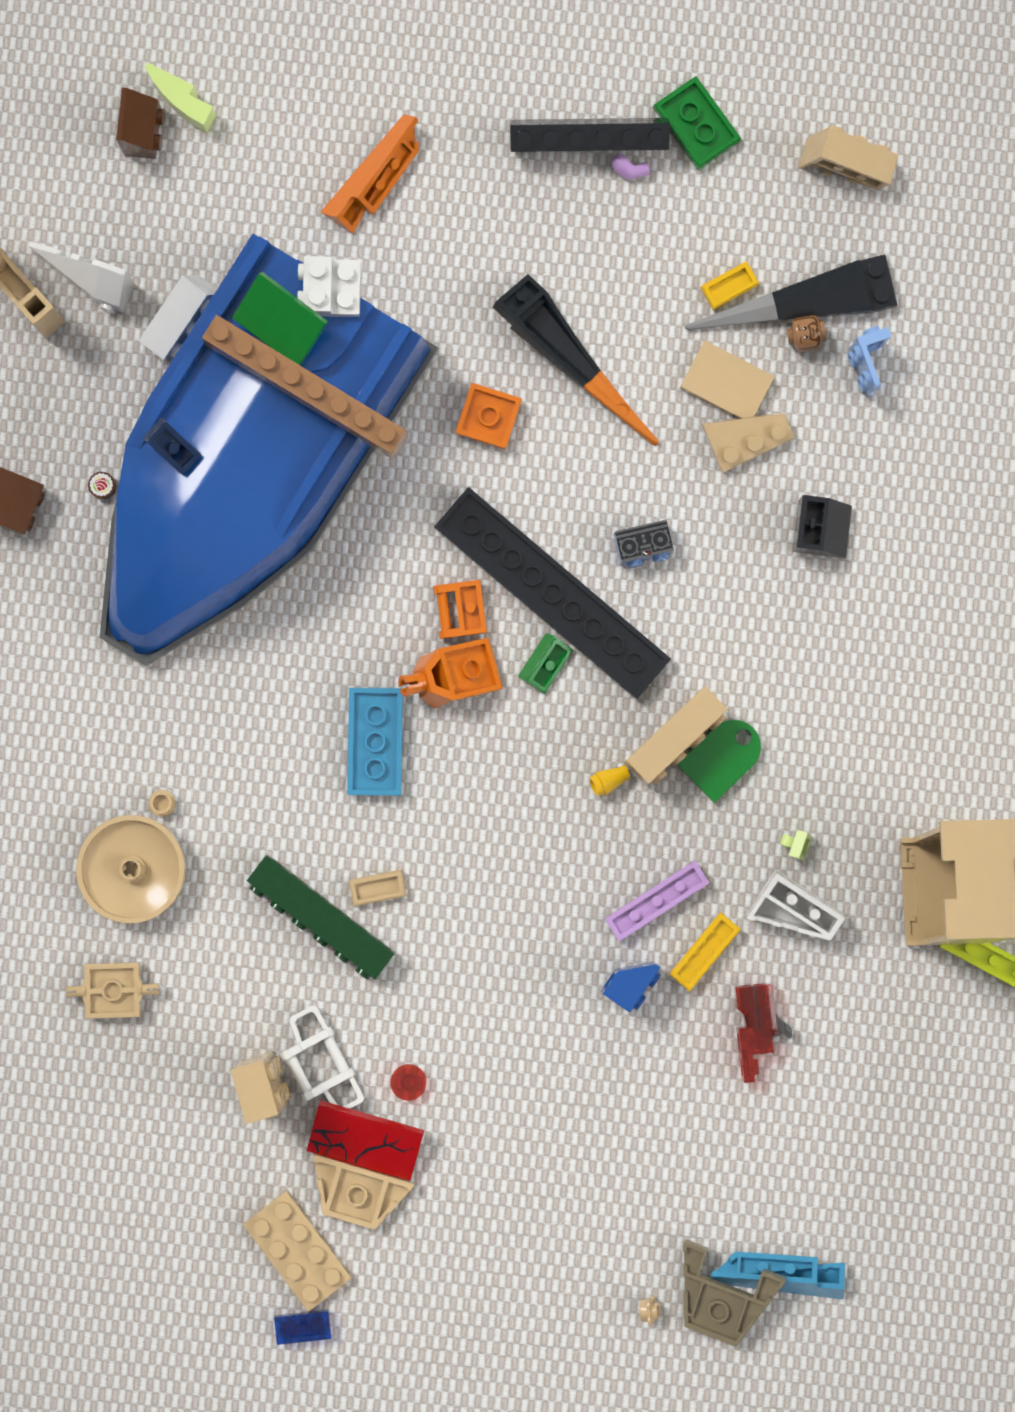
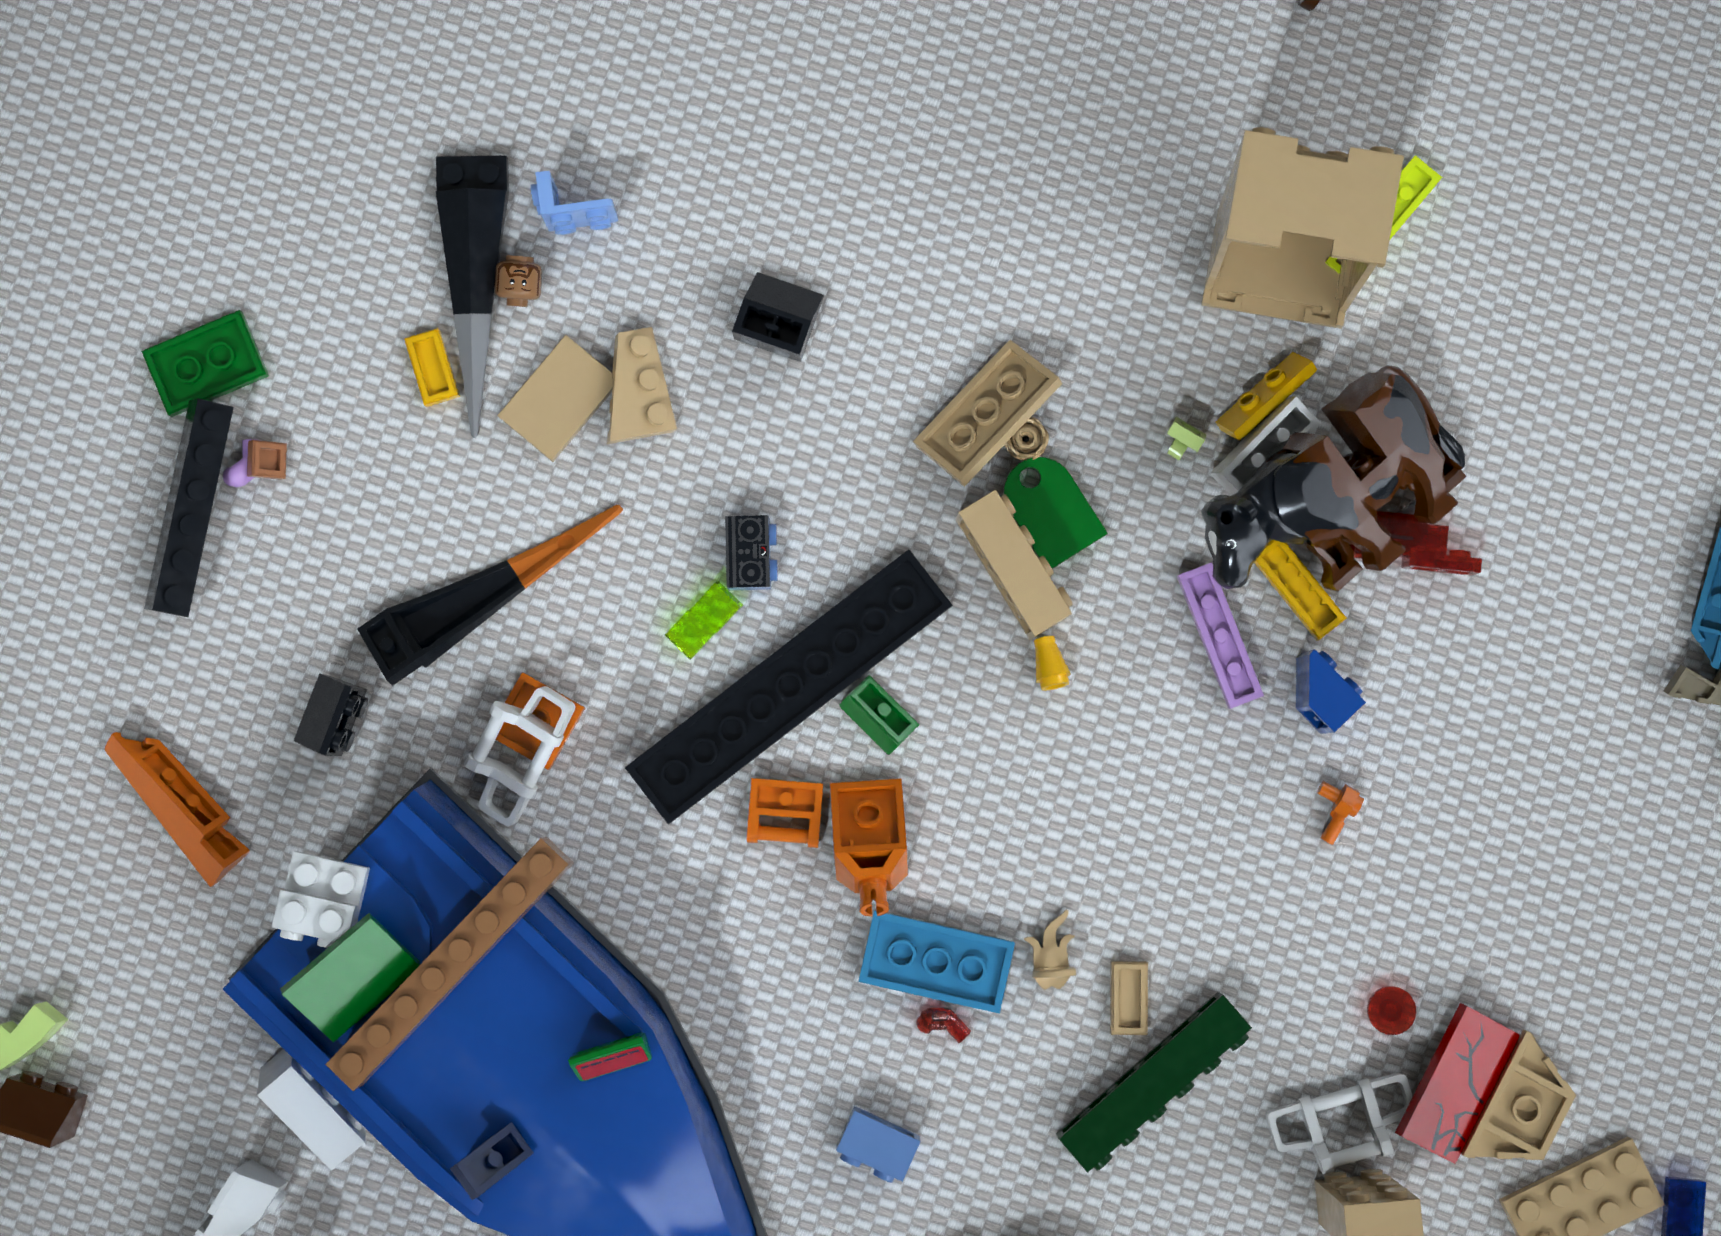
camera: 75 degrees left, 0 degrees up
(234, 726) = (877, 1145): none -> medium blue brick
(261, 515) = (610, 1057): none -> slope
(334, 755) = (942, 1019): none -> clear red arm
(393, 825) = (1050, 960): none -> tan piece
(446, 397) = (500, 772): none -> white bar
(461, 269) = (331, 716): none -> black slope
(553, 1018) = (1345, 803): none -> orange piece
(587, 521) = (704, 620): none -> clear neon green slope
(636, 182) = (266, 459): none -> nougat tile
(770, 958) = (1331, 500): none -> animal
(773, 719) = (1034, 447): none -> tan plate
(784, 695) = (987, 412): none -> tan plate
(842, 899) = (1266, 395): none -> yellow plate
(849, 156) = (296, 173): tan wedge -> none

